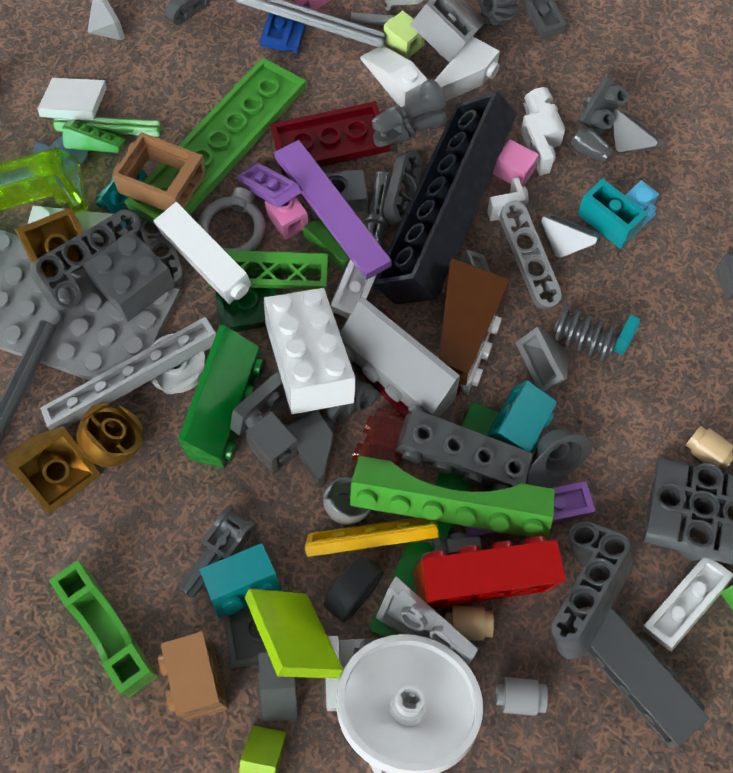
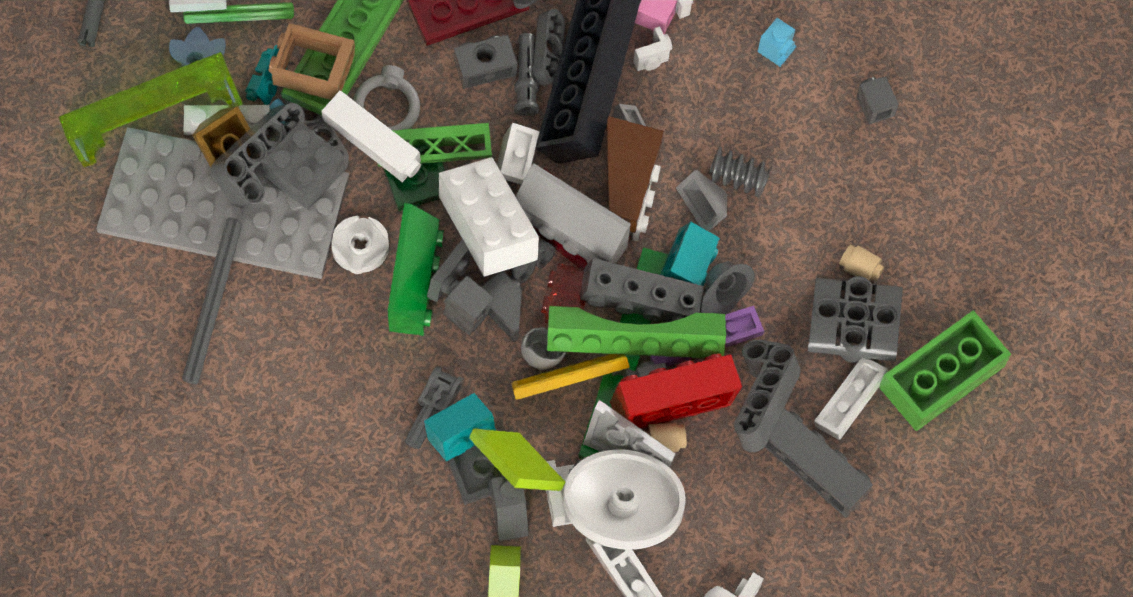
camera: 15 degrees left, 0 degrees up
(51, 467) = (266, 351): pearl gold slope -> none
(85, 137) = (227, 29): bright green slope -> none
(109, 435) = (316, 317): pearl gold cylinder -> none
(113, 641) = (330, 465): bright green arch -> none
(130, 374) = (324, 259): light grey plate -> none
(192, 676) = (437, 507): medium nougat brick -> none
(268, 184) = (418, 60): medium lavender tile -> none
(288, 218) = (439, 86): bright pink brick -> none
(324, 241) = (487, 110): bright green slope -> none
(333, 210) = (485, 78): medium lavender tile -> none
(353, 589) = (561, 421): black tyre -> none
(521, 696) = (716, 490): light grey brick -> none
(533, 254) = (685, 100): light grey beam -> none
(567, 236) = (712, 77): slope -> none
(611, 213) = (752, 53): teal brick -> none
(626, 335) = (777, 168): teal tile -> none

